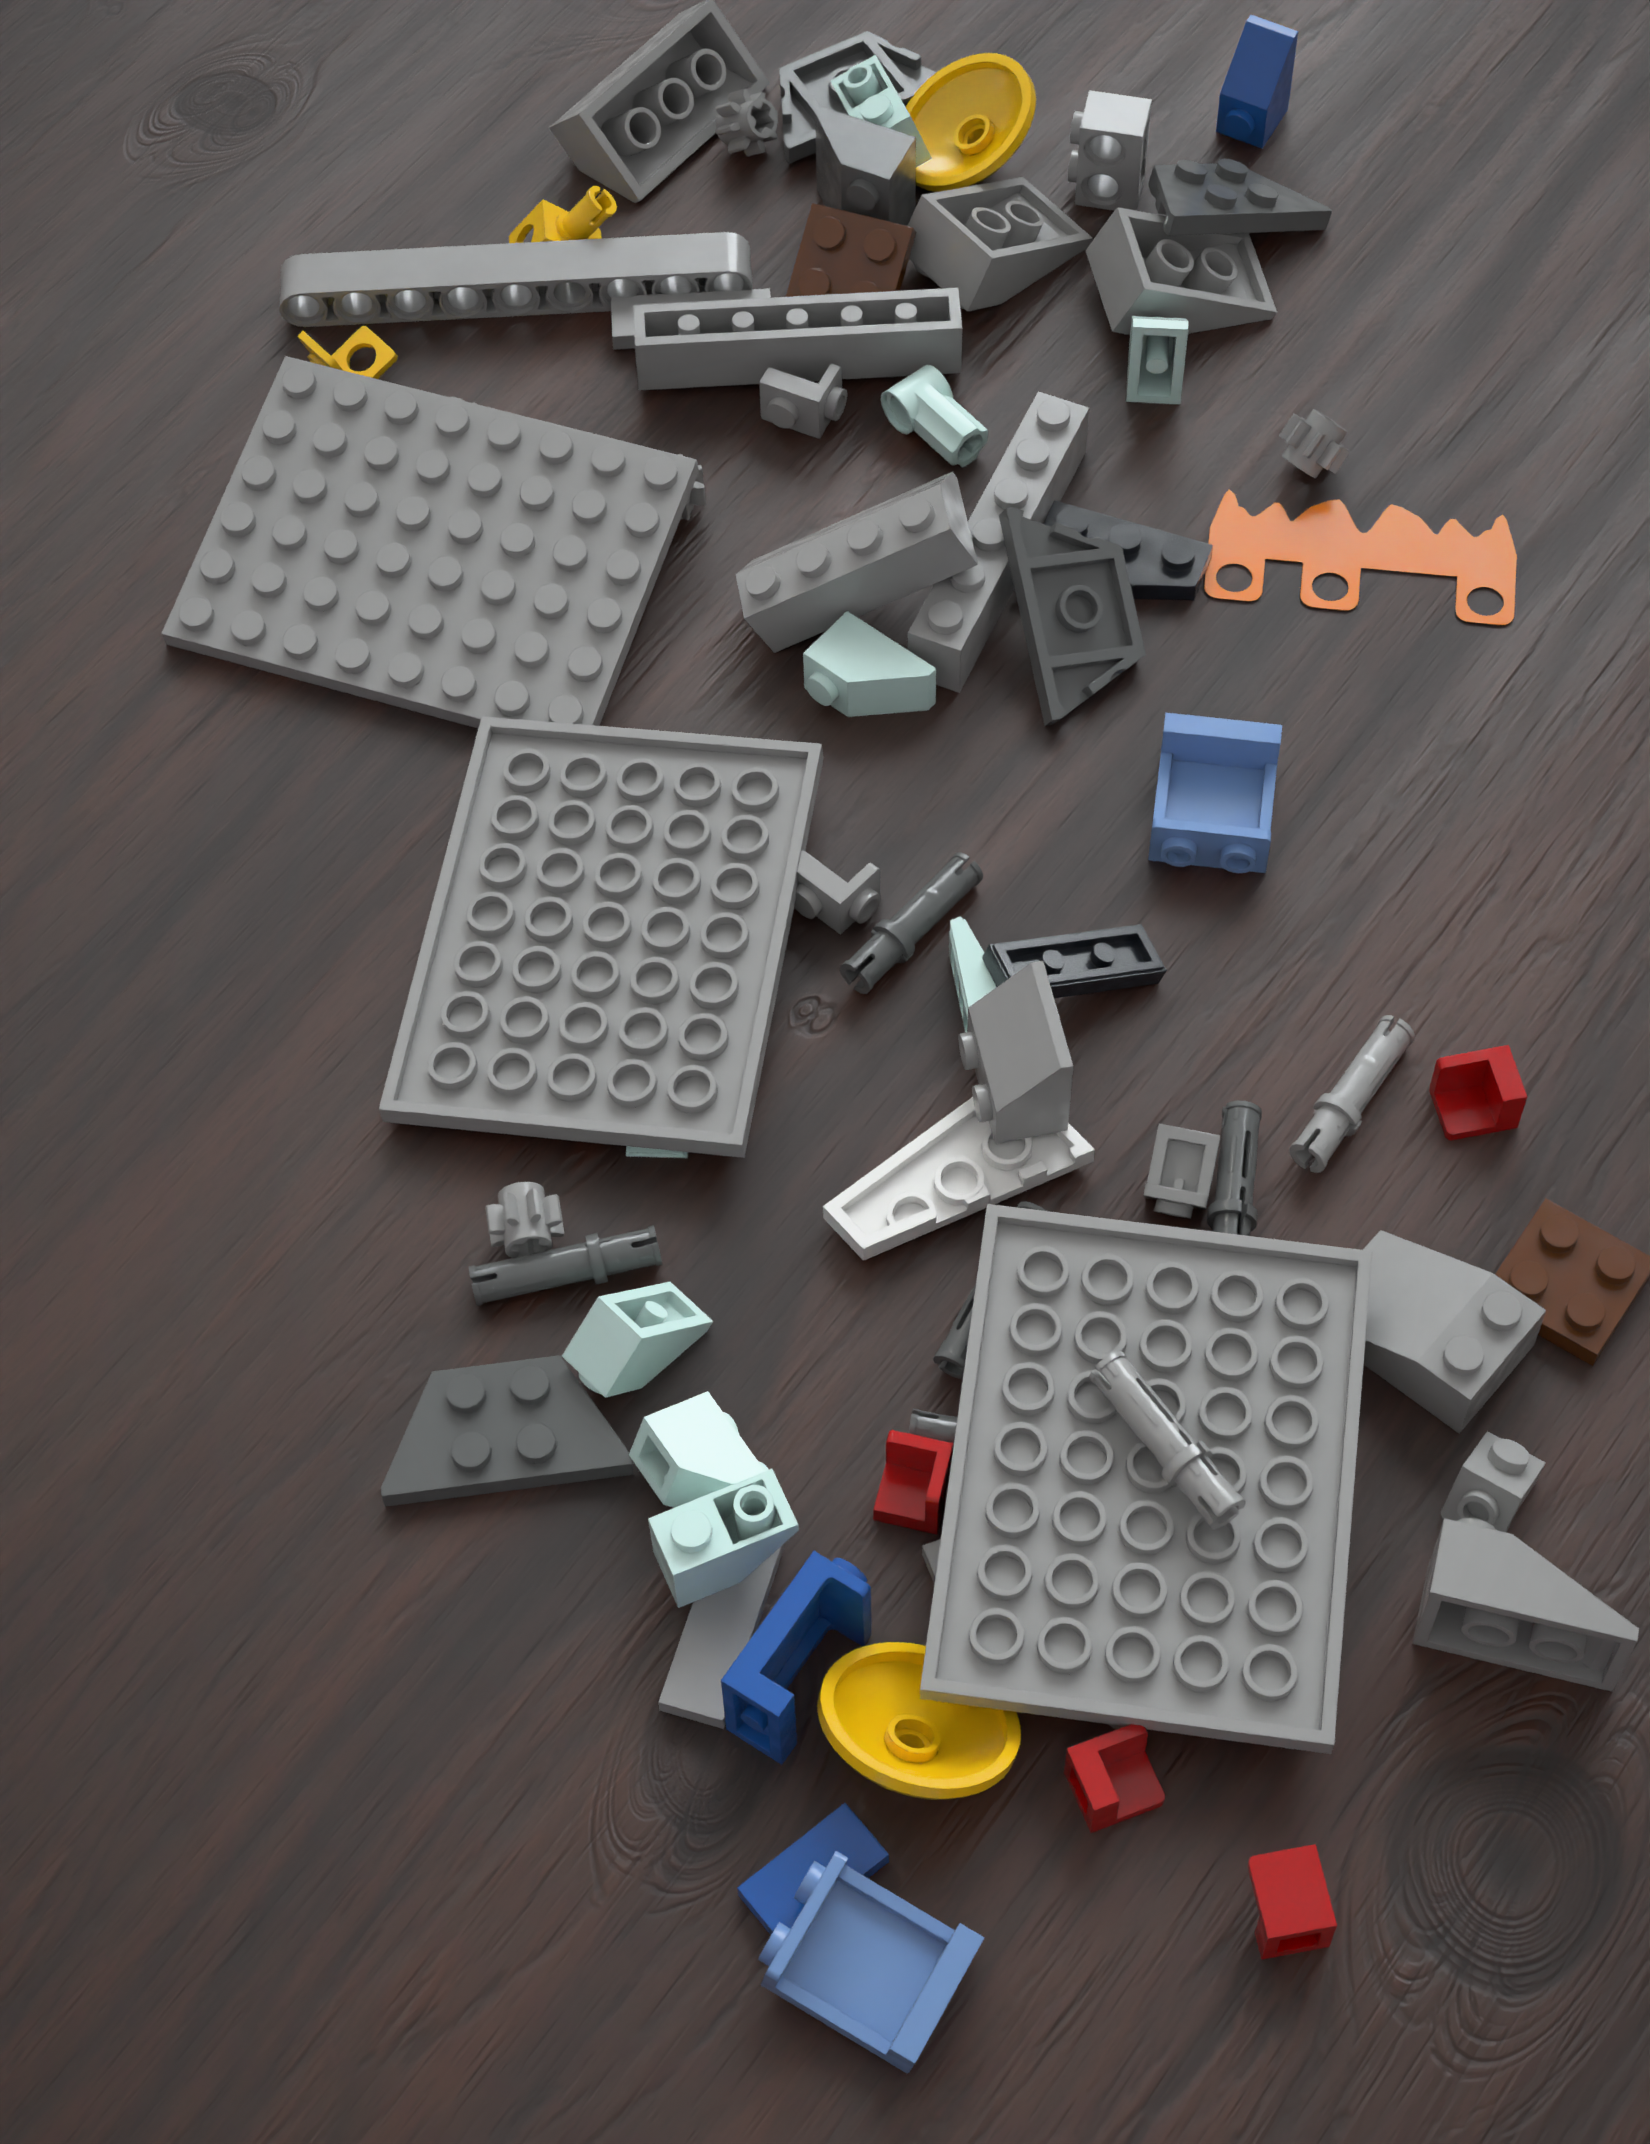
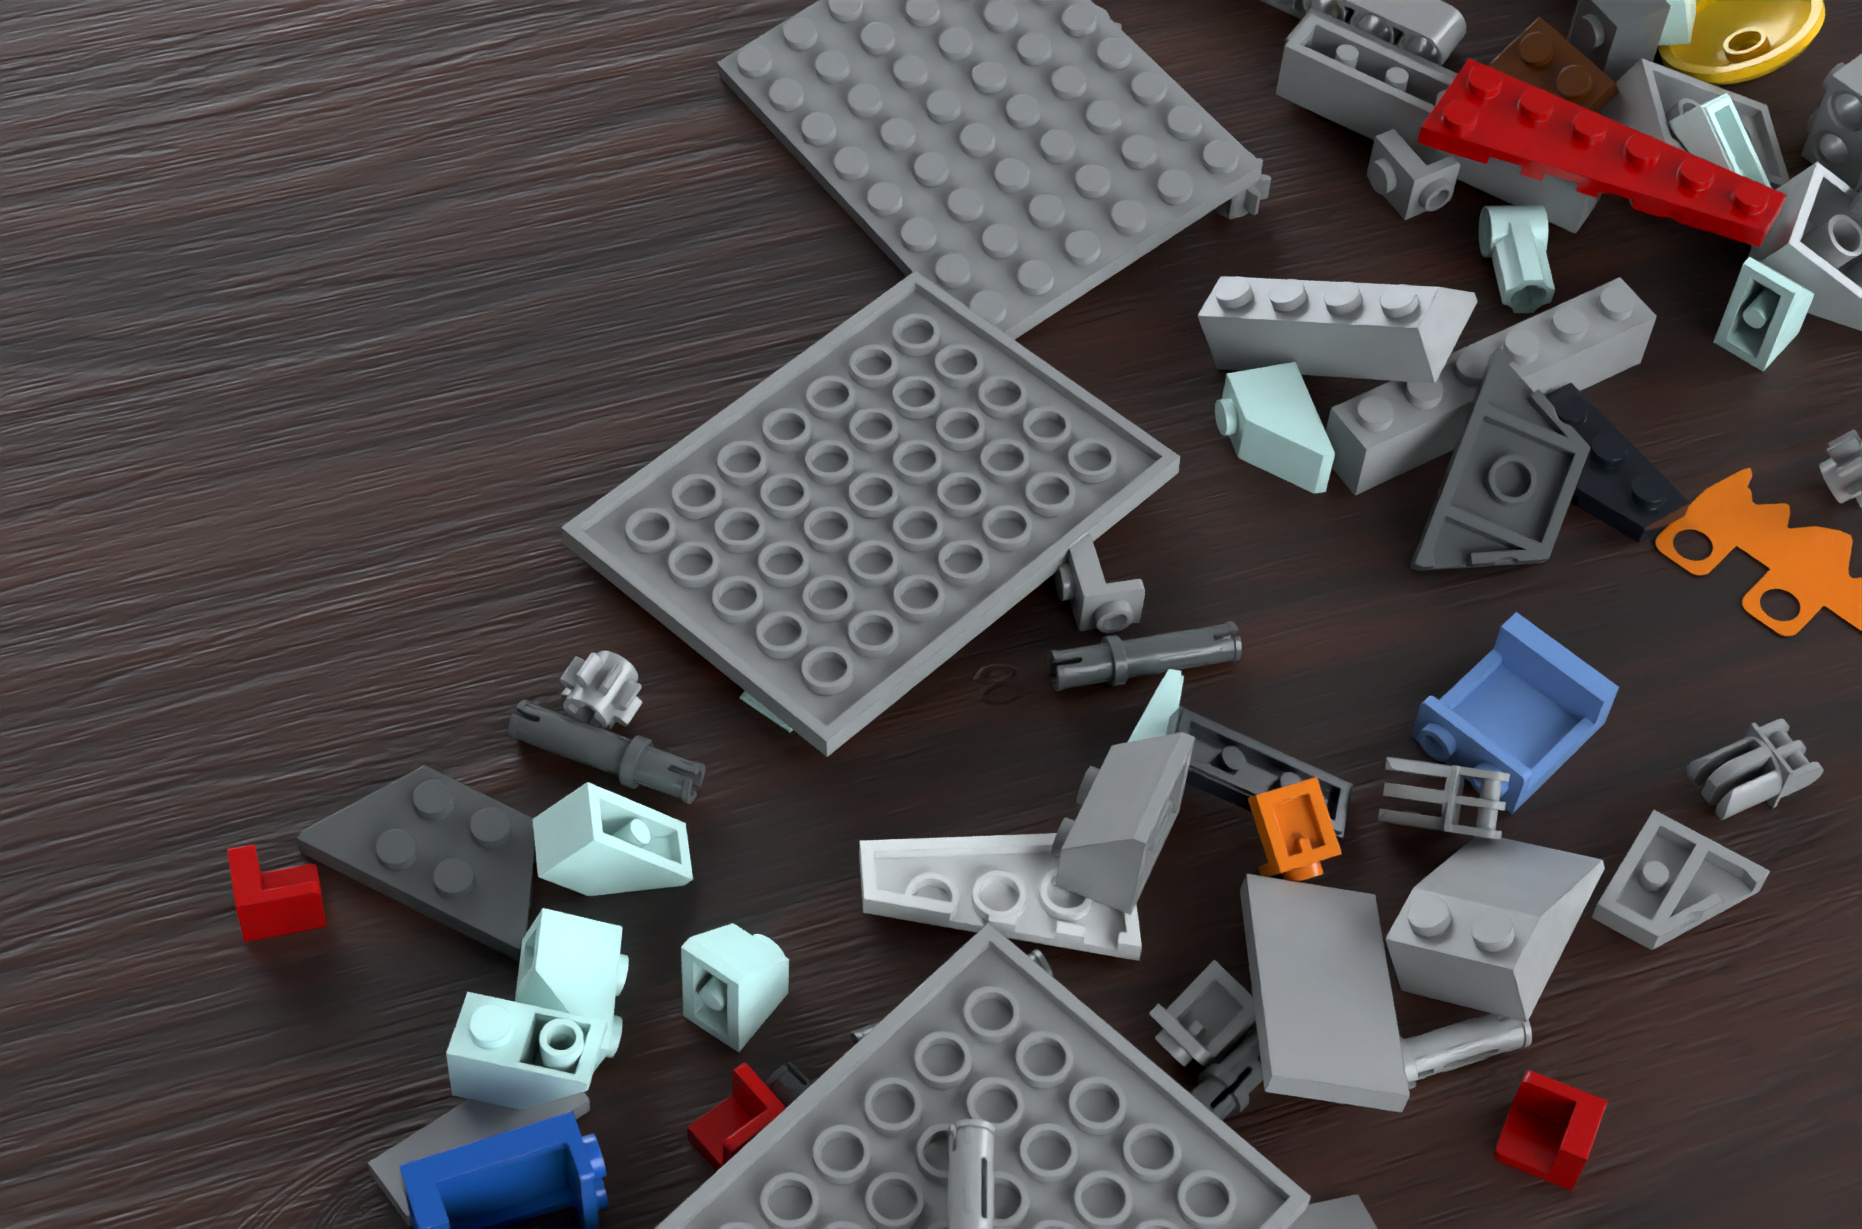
camera: 30 degrees right, 5 degrees down
(404, 1553) = (274, 900): none -> red panel
(822, 1379) = (732, 982): none -> light aqua slope
(874, 307) = (1524, 125): none -> red wing
(1033, 236) = (1718, 136): none -> light aqua slope
(1138, 987) = (1294, 830): none -> orange bracket
(1223, 890) = (1450, 798): none -> light grey arm
(1253, 1097) = (1322, 994): none -> light grey tile
(1327, 964) = (1491, 924): none -> light grey slope
(1418, 718) = (1754, 770): none -> light grey arm
(1420, 851) = (1674, 883): none -> light grey wing

